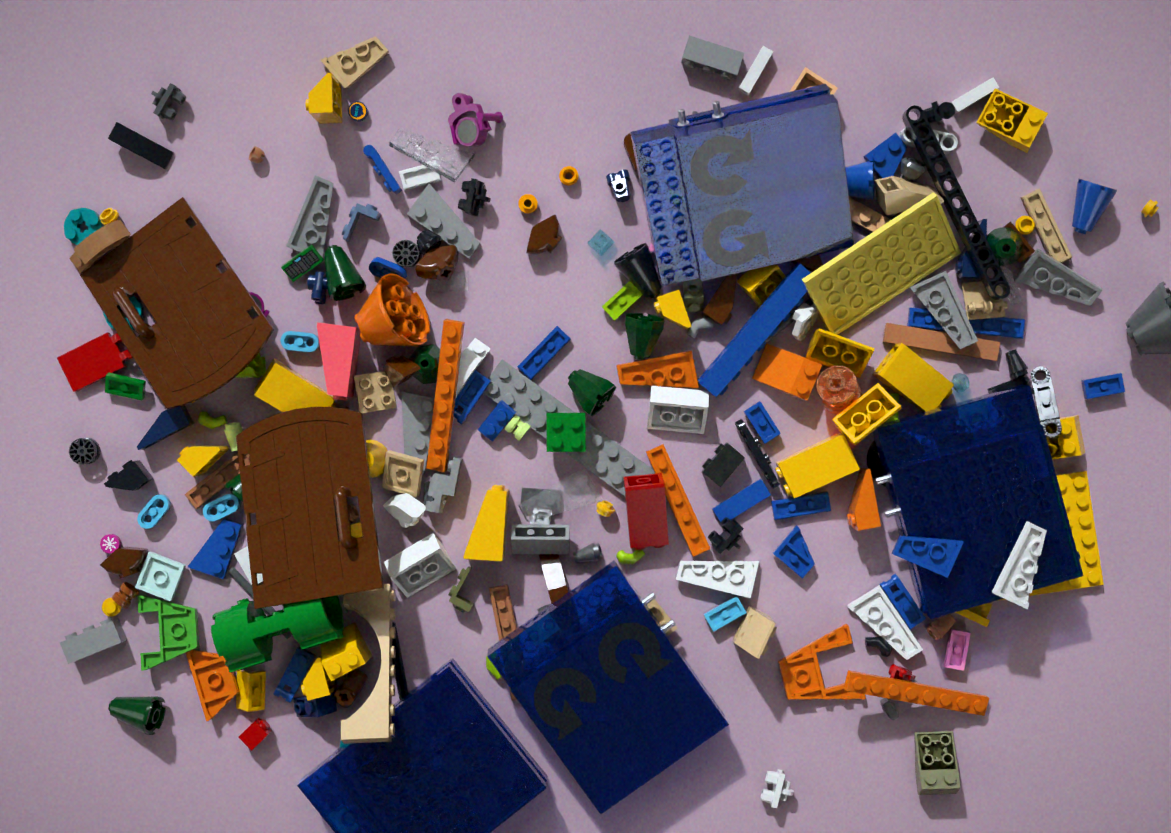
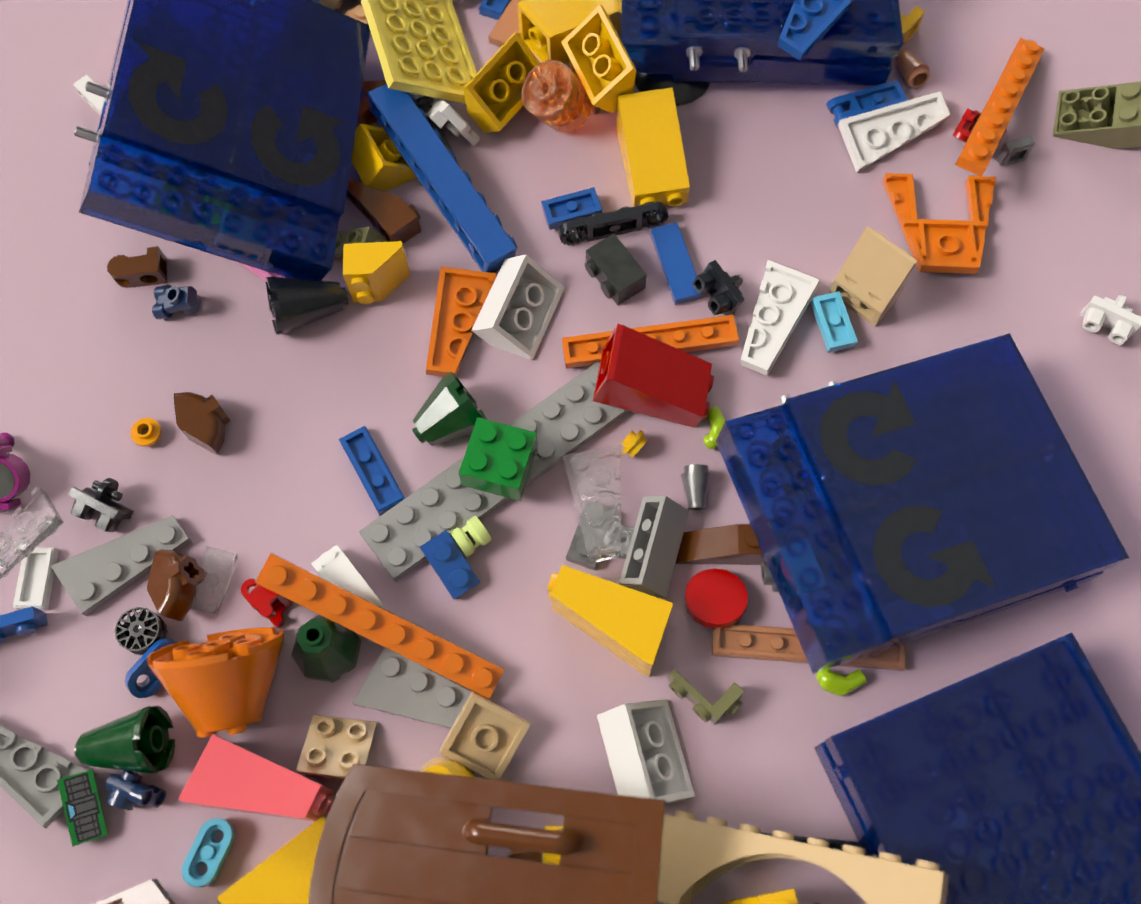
camera: 75 degrees left, 20 degrees down
(369, 211) = (44, 680): sand blue bracket -> none
(400, 369) = (315, 687): reddish brown slope -> none
(405, 509) = (545, 749): white piece -> none
(427, 241) = (133, 590): black cone -> none
(437, 326) = (266, 602): none -> red piece
(440, 486) = (525, 680): light grey plate -> none
(470, 395) = (395, 591): blue plate -> none
(521, 582) = (716, 598): none -> red tile
(564, 171) = (126, 361): light orange plate -> none
(601, 242) = (244, 349): clear light blue tile -> none
(622, 300) = (337, 341): lime plate -> none
(643, 333) = (393, 321): dark green cone -> none
(700, 323) = (410, 243): light grey arm -> none
(712, 58) = (56, 147): light grey brick -> none
(787, 372) = (514, 159): orange slope -> none
(795, 553) = (768, 212): blue wing -> none
(801, 505) = (702, 193): blue tile -> none
(863, 504) = (718, 106): orange slope -> none
(880, 643) = (926, 138): black arm -> none
(957, 649) = (947, 57): bright pink plate -> none

